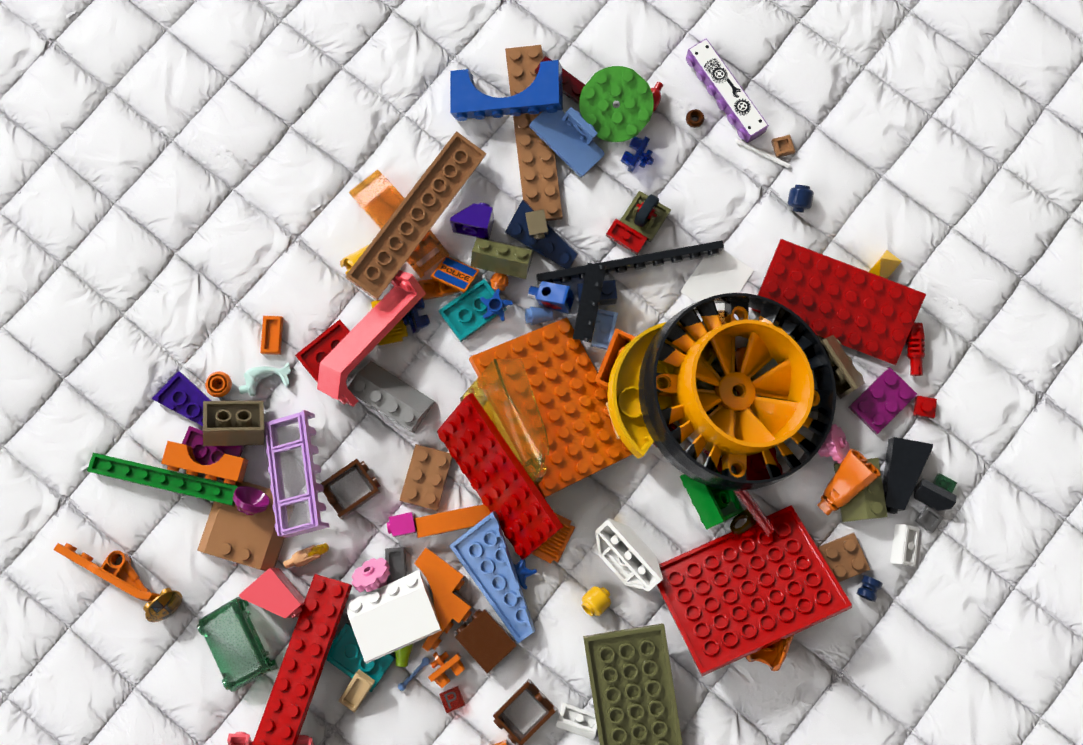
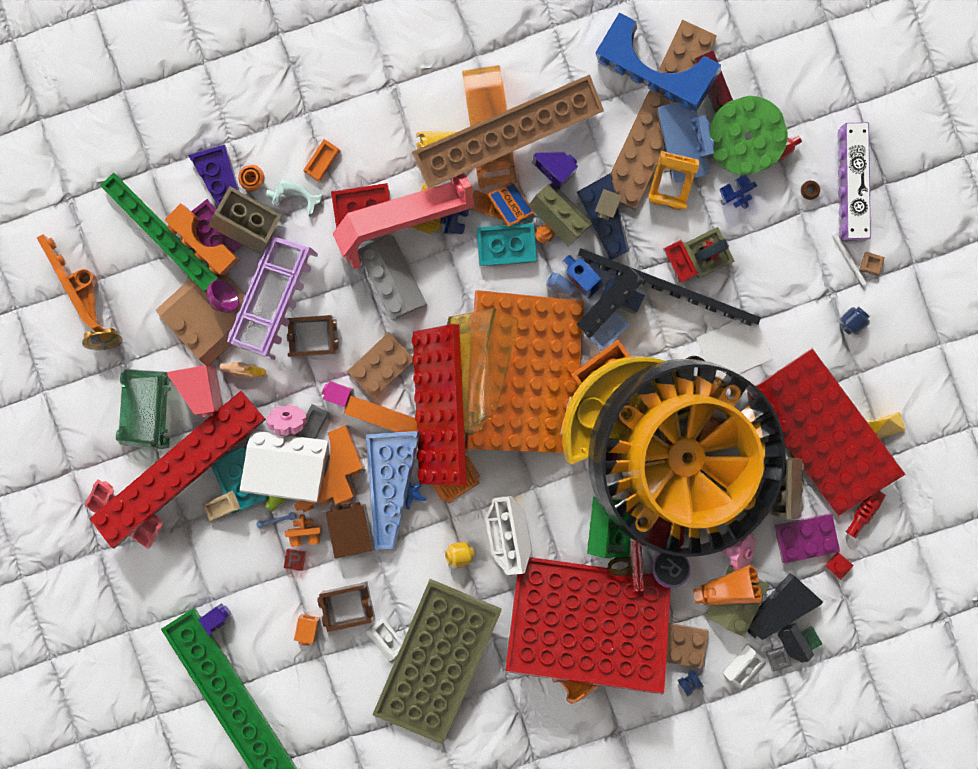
camera: 25 degrees right, 10 degrees up
(495, 305) = (528, 254): blue animal -> none
(574, 159) = (677, 163): none -> light orange window
(786, 498) = (671, 570): none -> black tile

